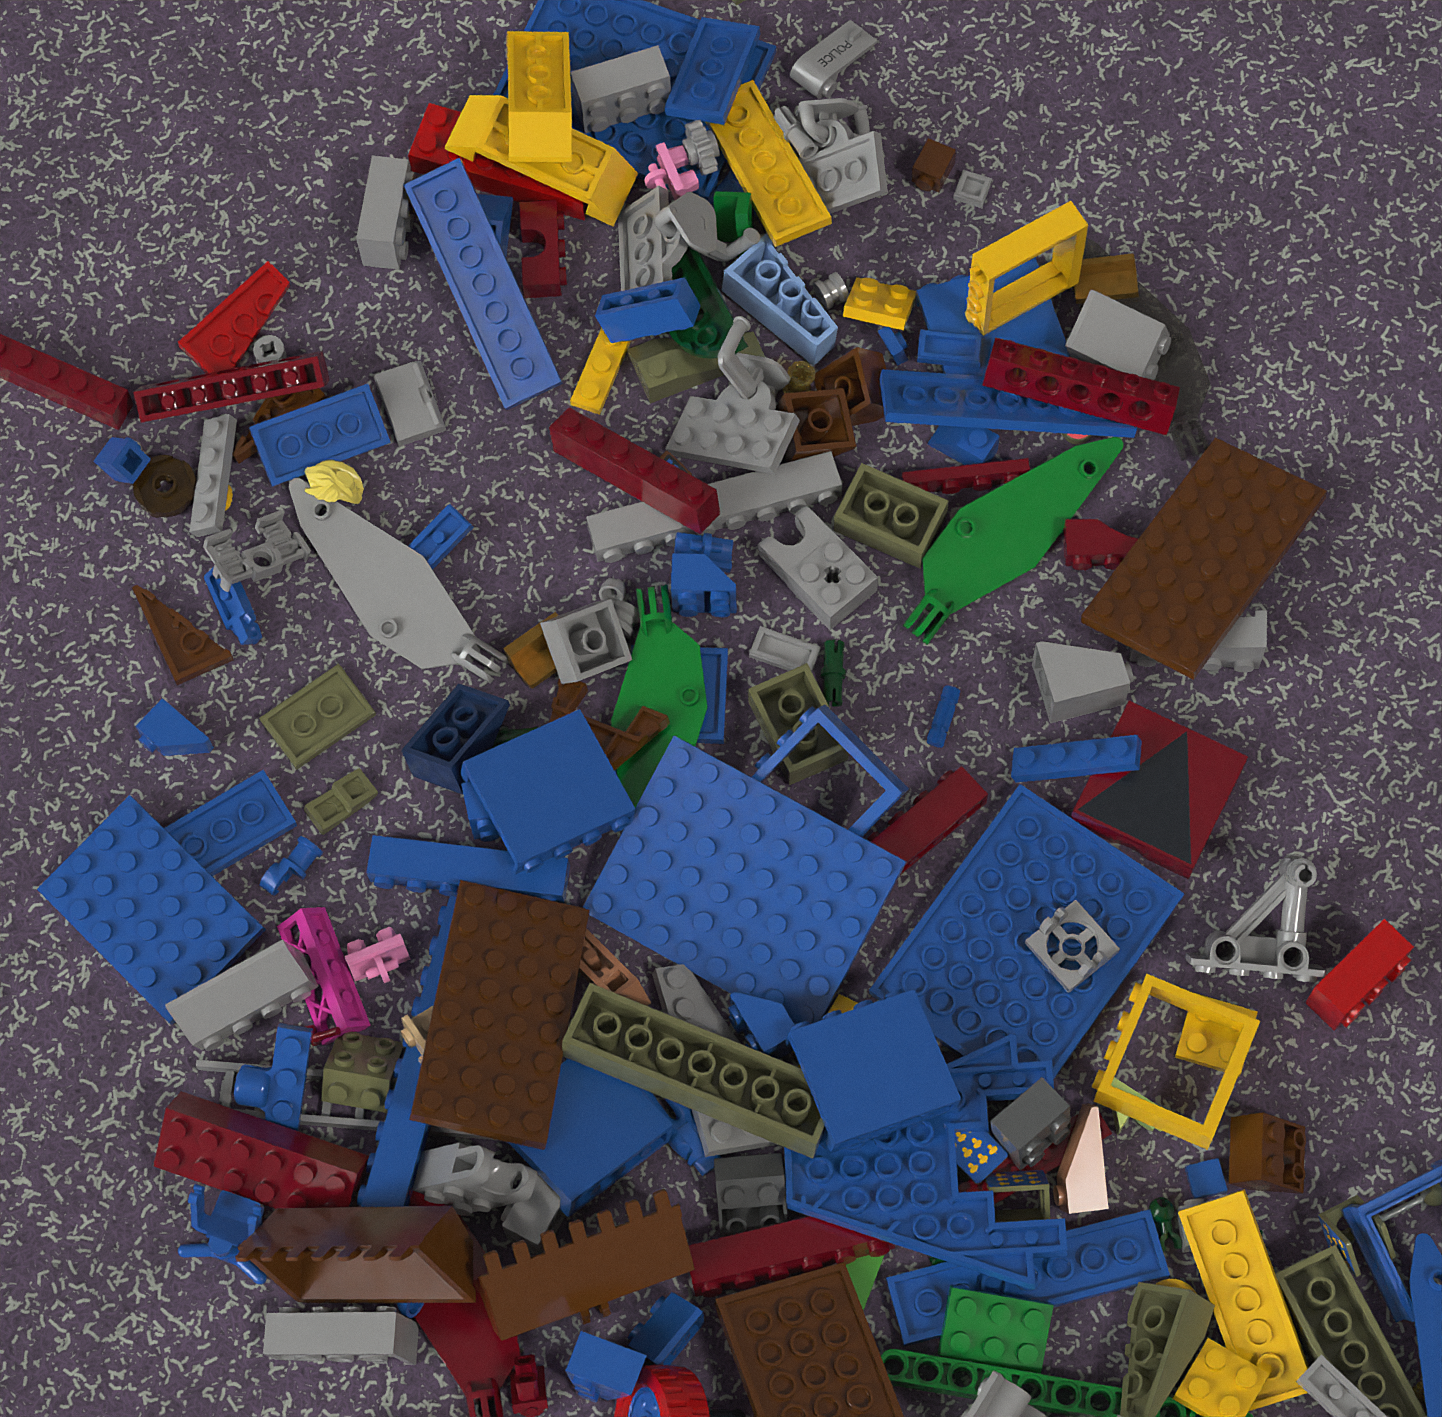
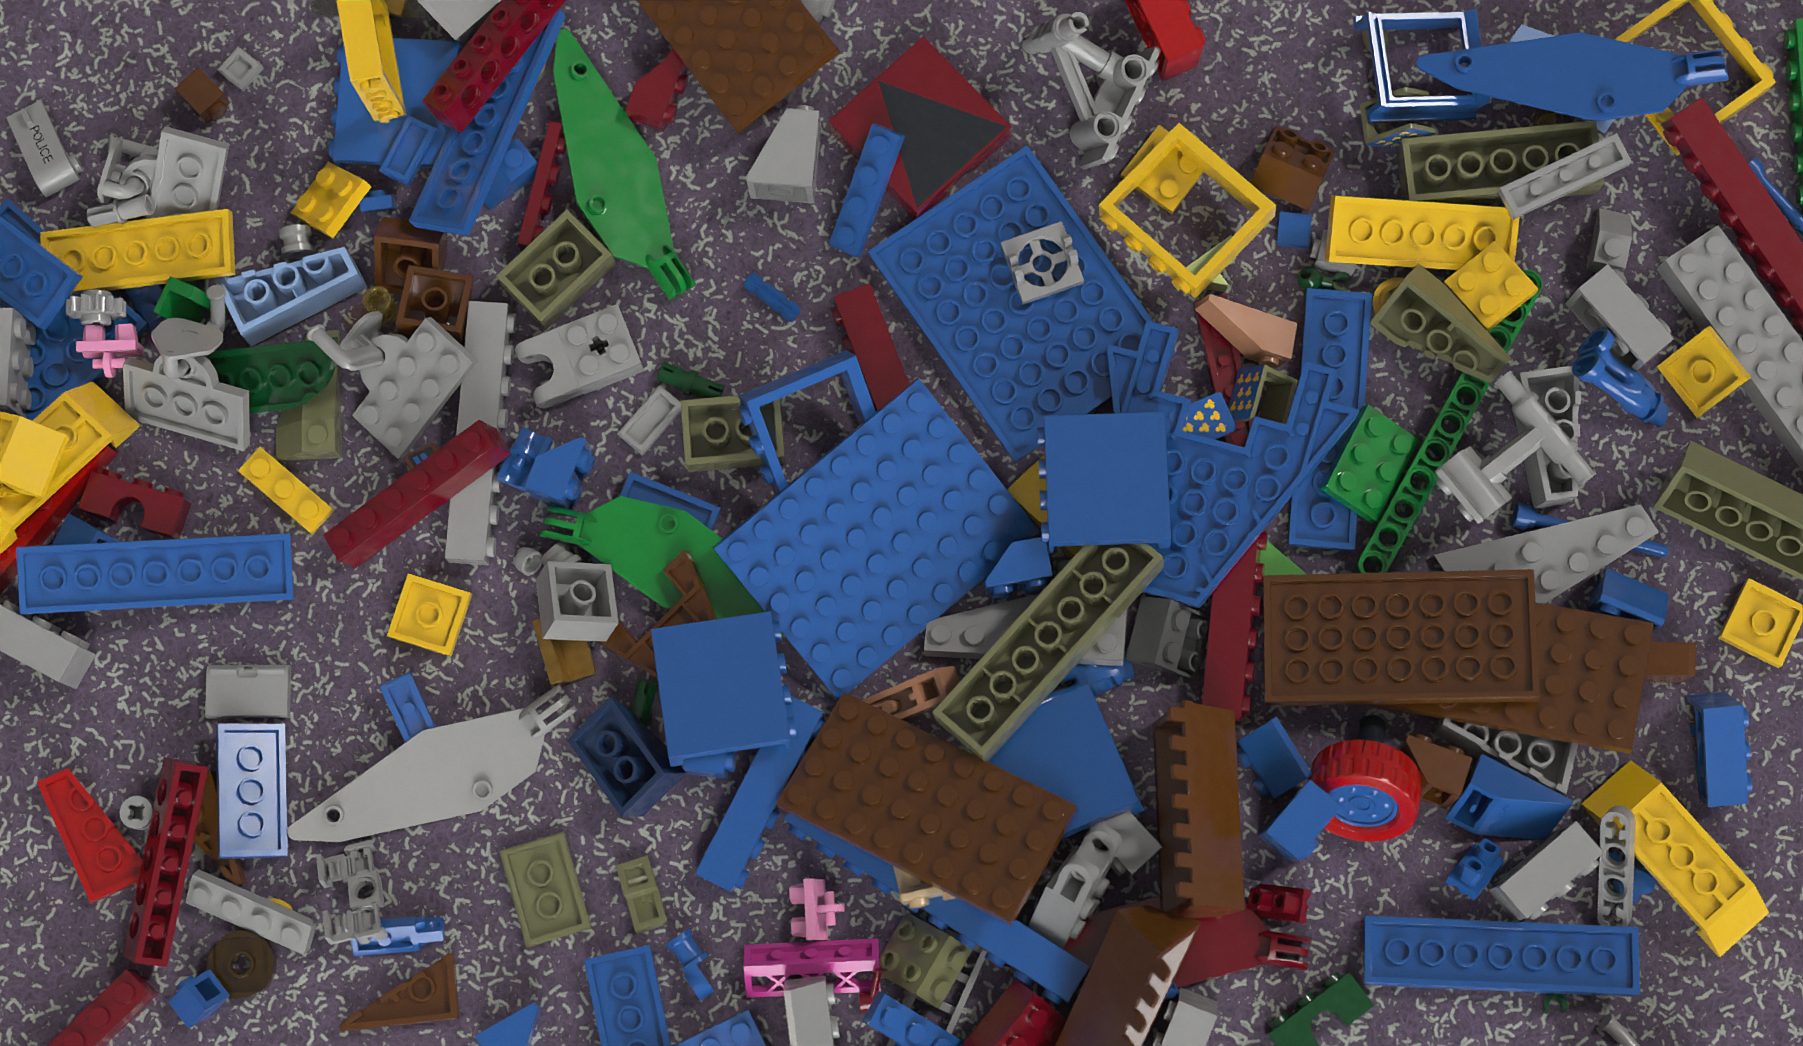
camera: 70 degrees left, 10 degrees up
(334, 481) = (307, 793): light yellow hat -> none
(532, 526) = (429, 615): none -> yellow plate
(648, 310) = (256, 420): blue brick -> none
(1032, 1124) = (1202, 357): dark grey slope -> none

